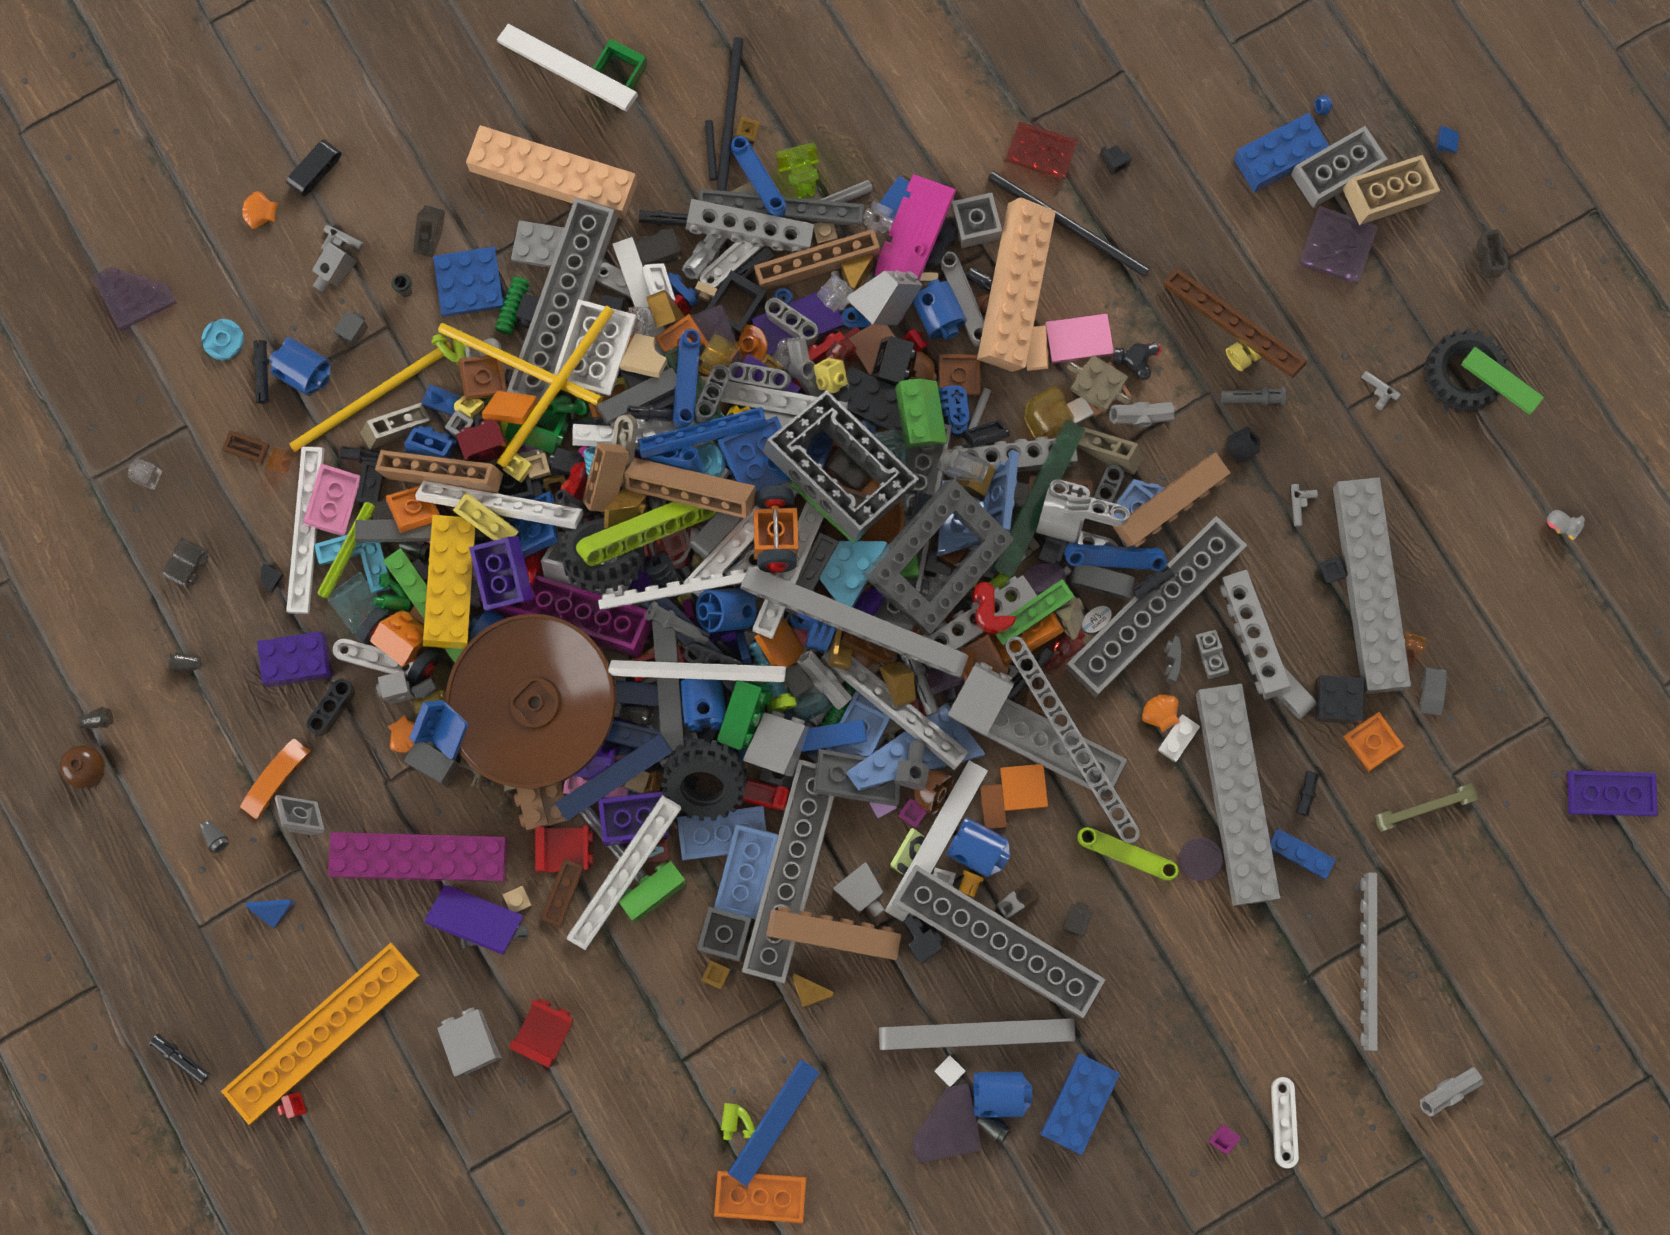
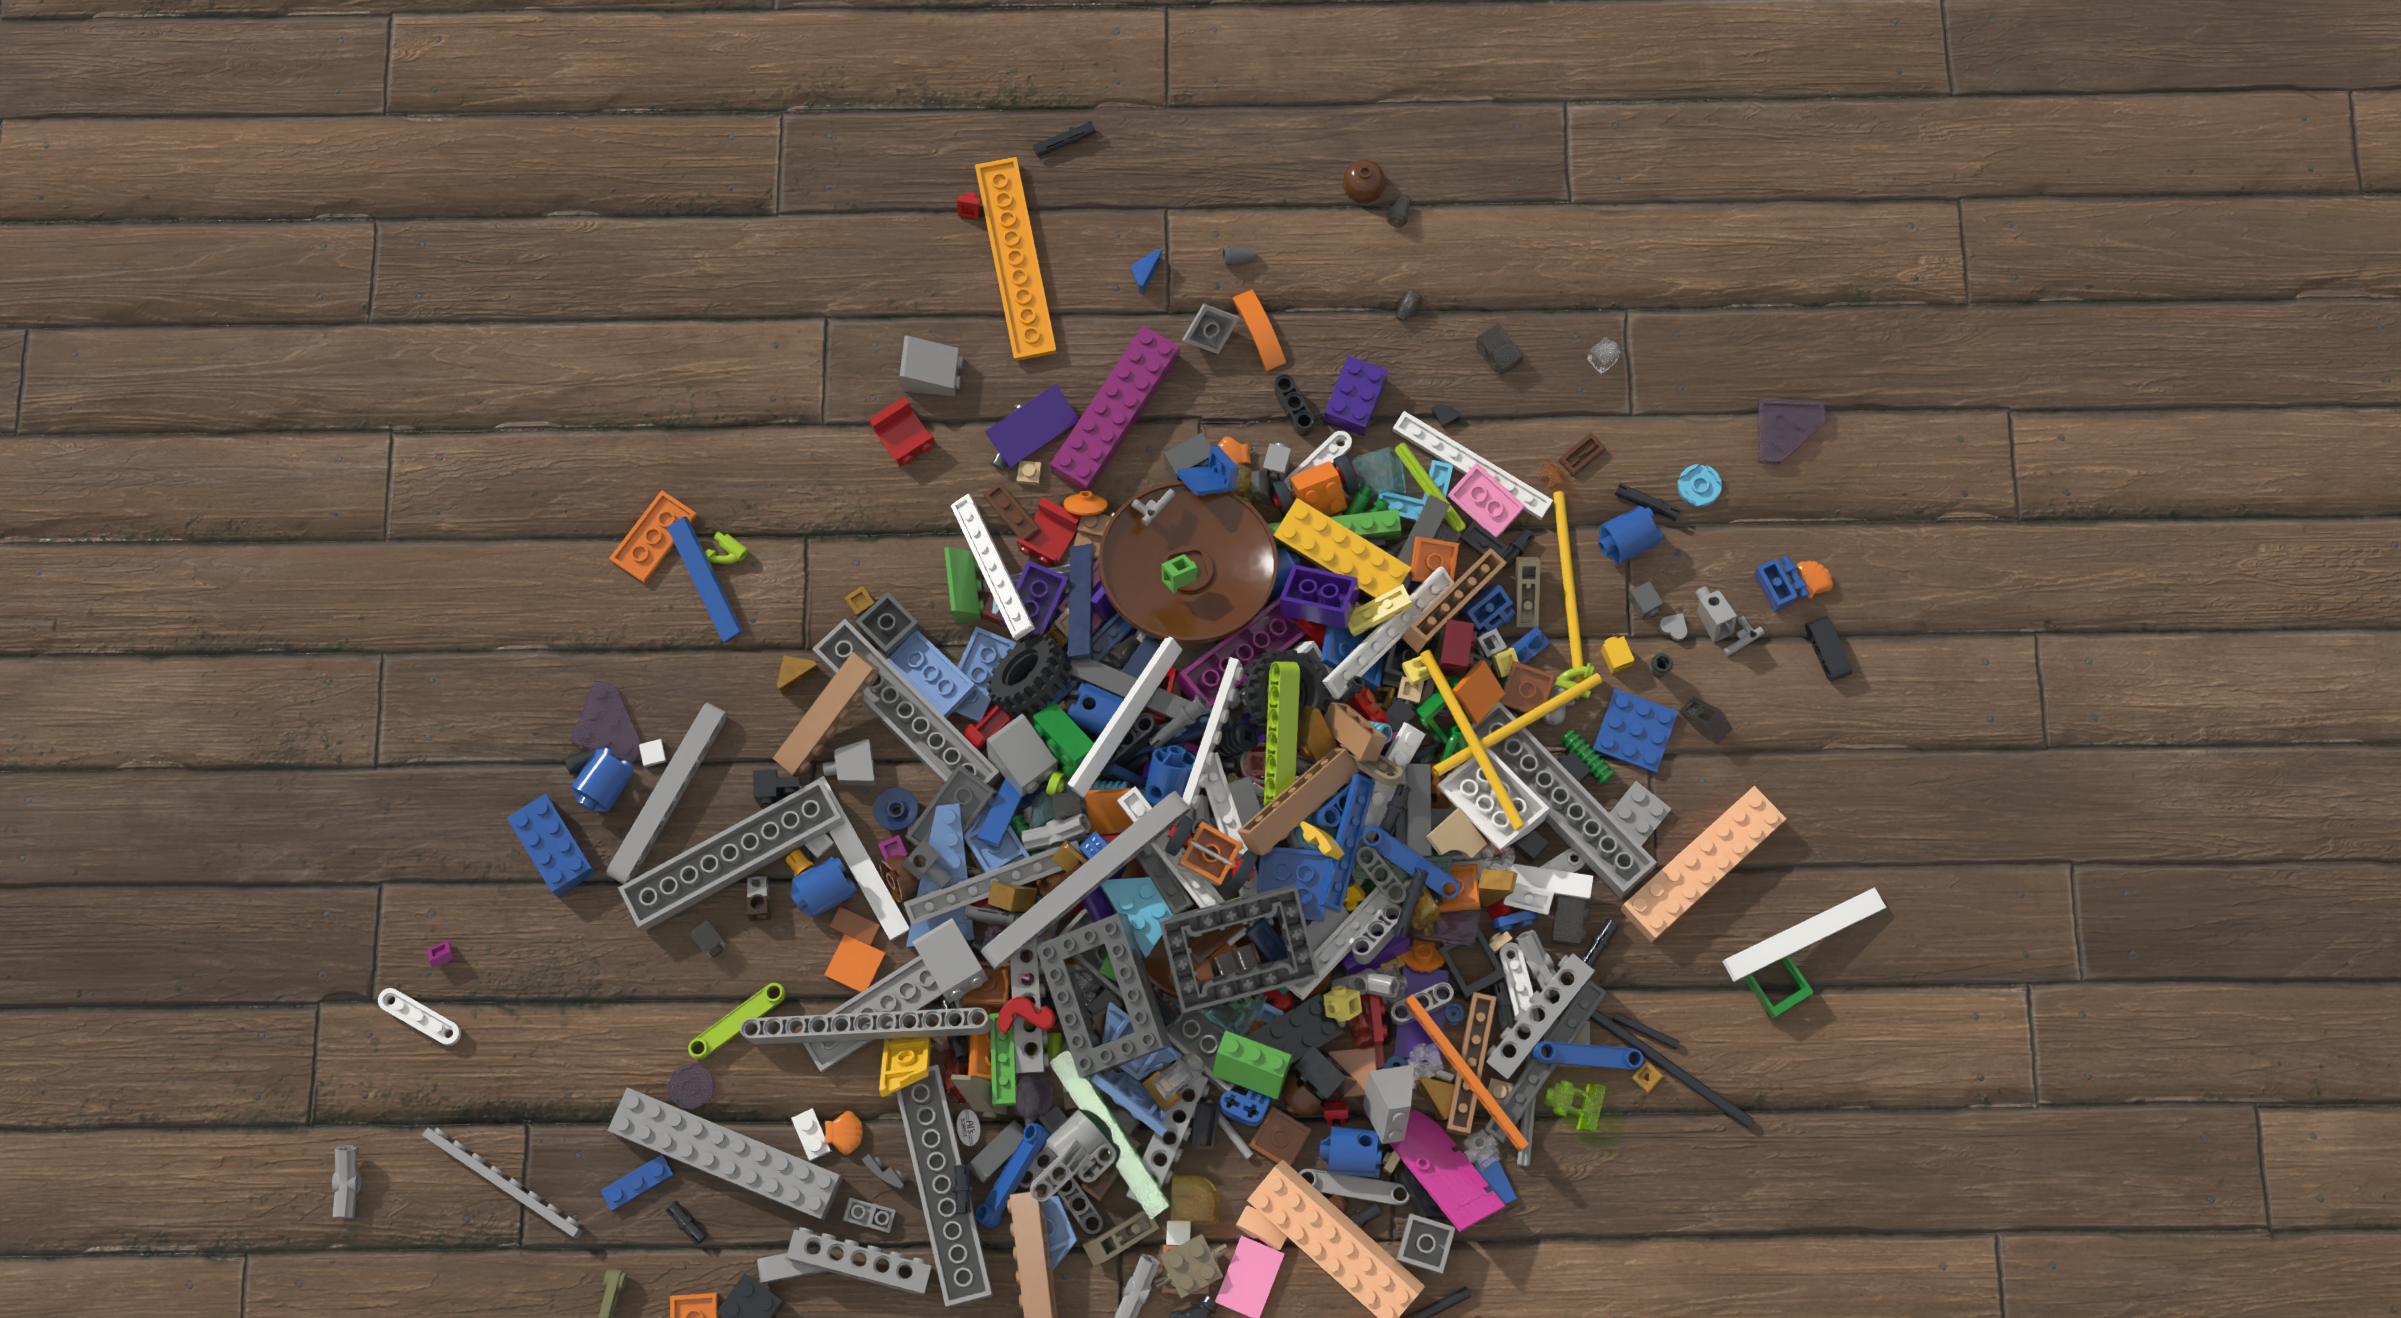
camera: 120 degrees right, 5 degrees down
(281, 230) = (1776, 585): none -> blue brick
(360, 296) = (1674, 626): none -> light grey tile
(410, 326) = (1617, 654): none -> yellow brick
(497, 758) = (1153, 507): none -> light grey hose
(521, 831) = (1085, 504): none -> orange dish
(548, 696) = (1178, 572): none -> bright green brick
(711, 456) = (1326, 843): none -> yellow slope
(721, 357) = (1411, 901): none -> black pin
(829, 253) = (1466, 1073): none -> orange tile
(873, 842) = (890, 801): none -> dark blue dish
(907, 851) = (862, 826): yellowish green slope -> none
(1082, 690) = (904, 1063): none -> yellow wing

